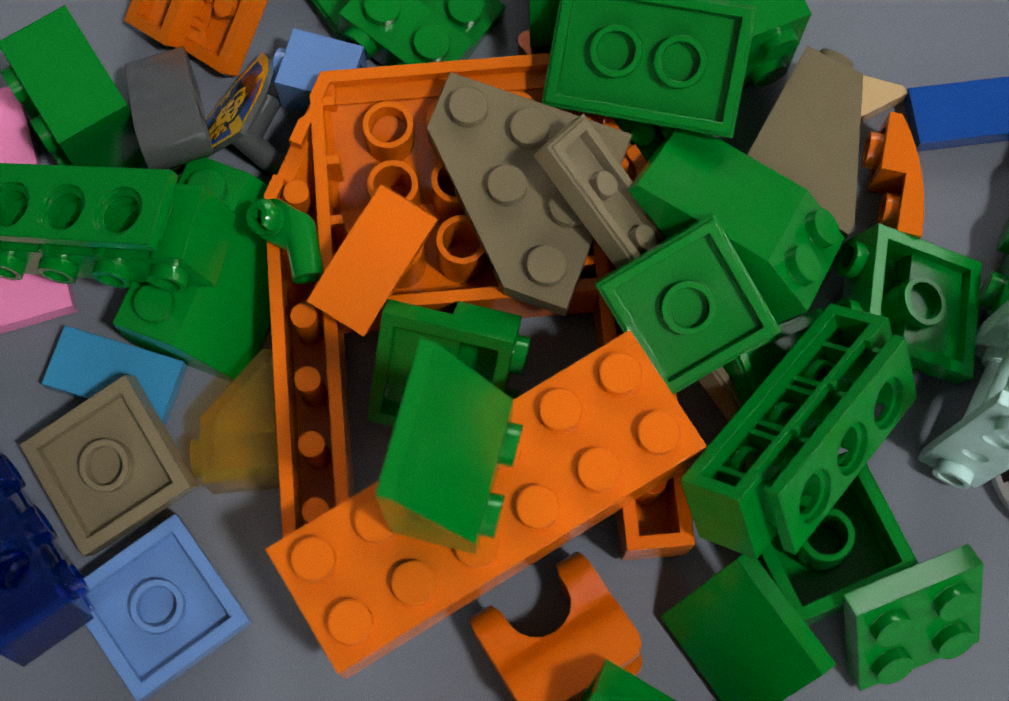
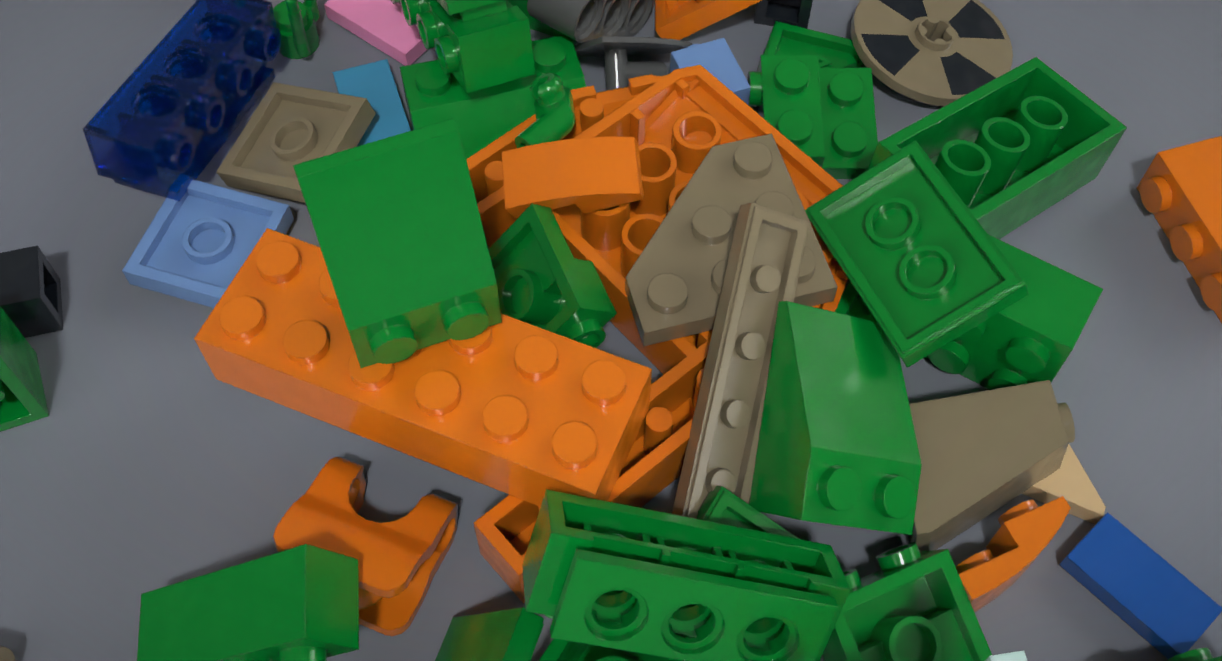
camera: 55 degrees right, 15 degrees down
(689, 304) = (719, 414): green tile -> none

